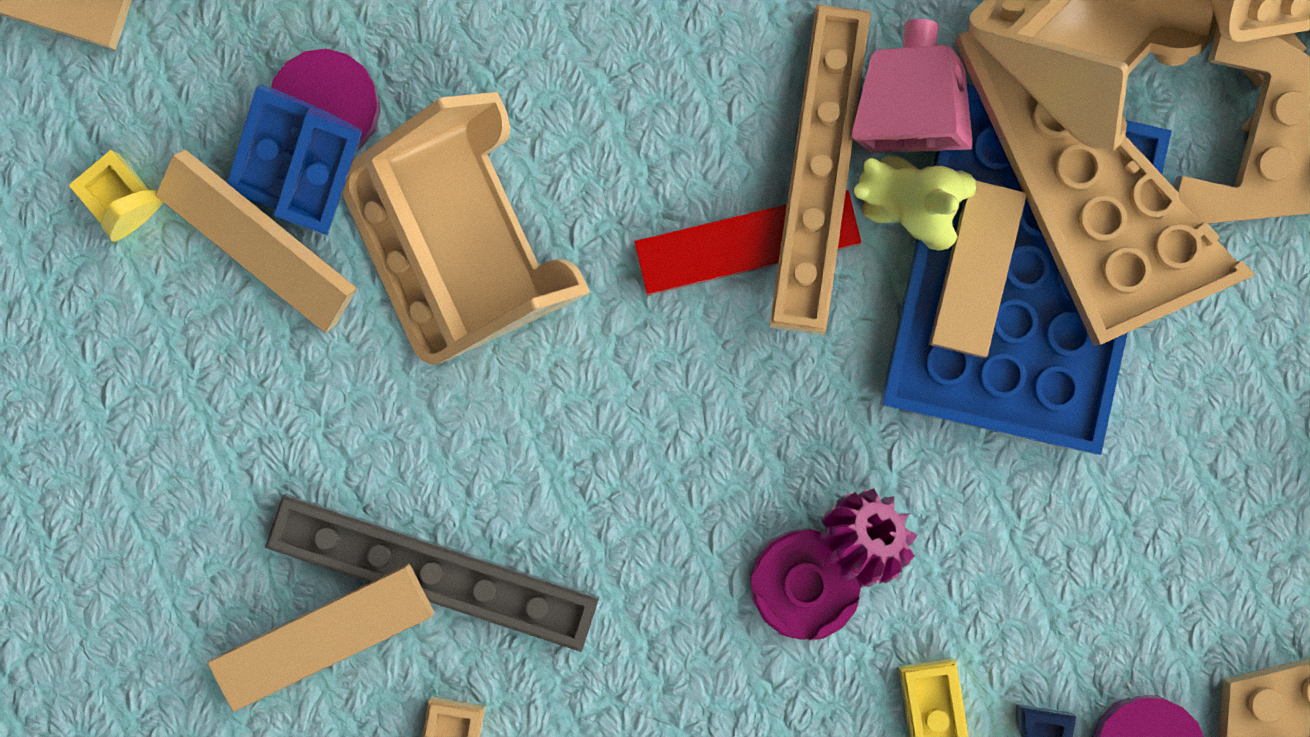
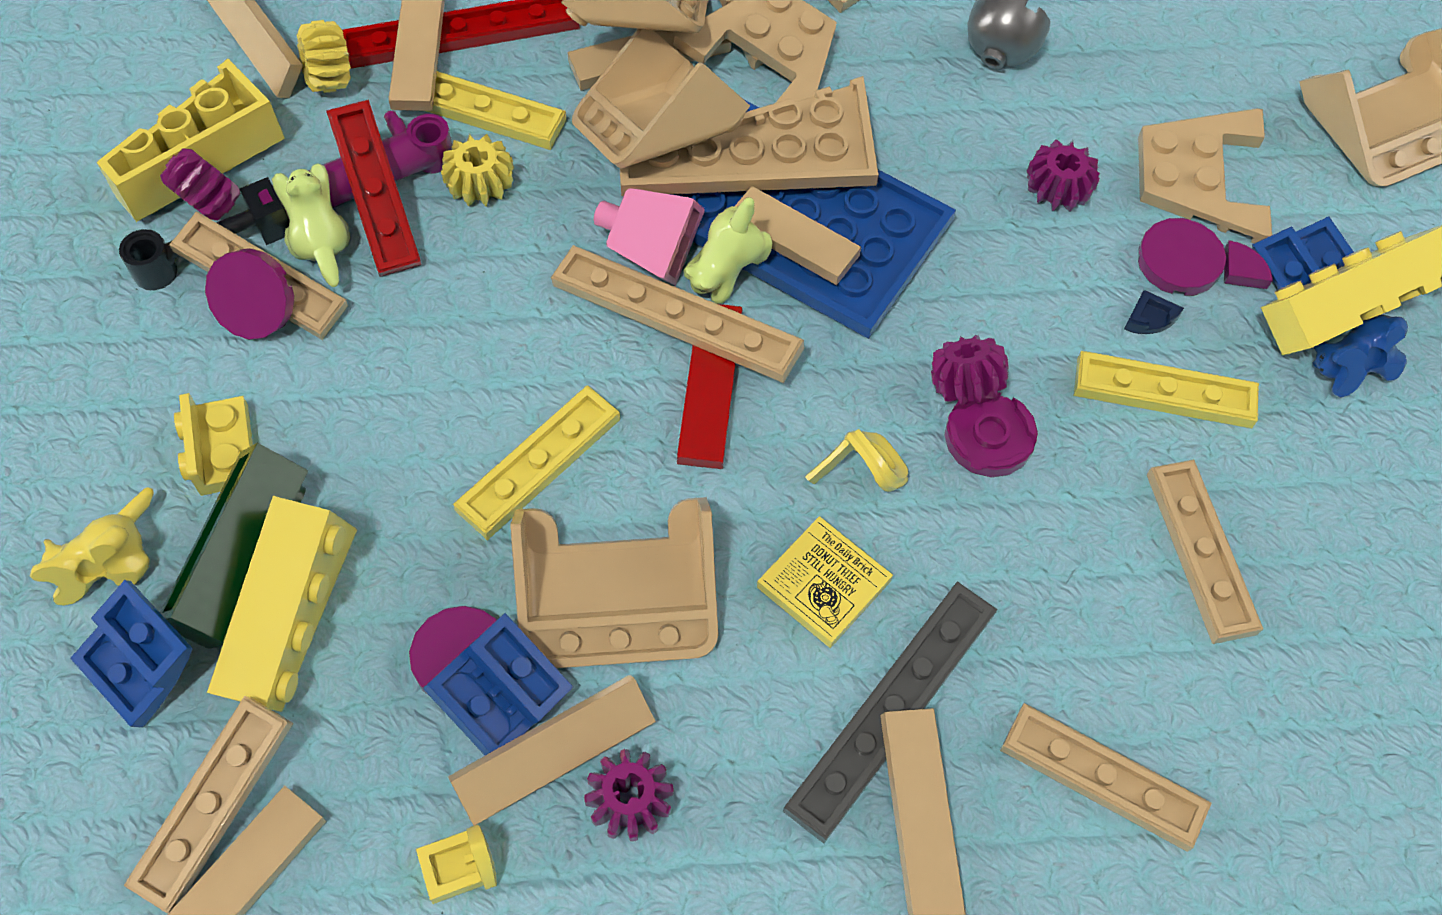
camera: 70 degrees left, 25 degrees down
(236, 356) = (637, 810): none -> magenta gear
(548, 454) = (824, 581): none -> light yellow tile
(577, 90) = (536, 462): none -> light yellow tile
(709, 440) = (879, 455): none -> light yellow piece
(1227, 559) = (1063, 175): none -> magenta gear

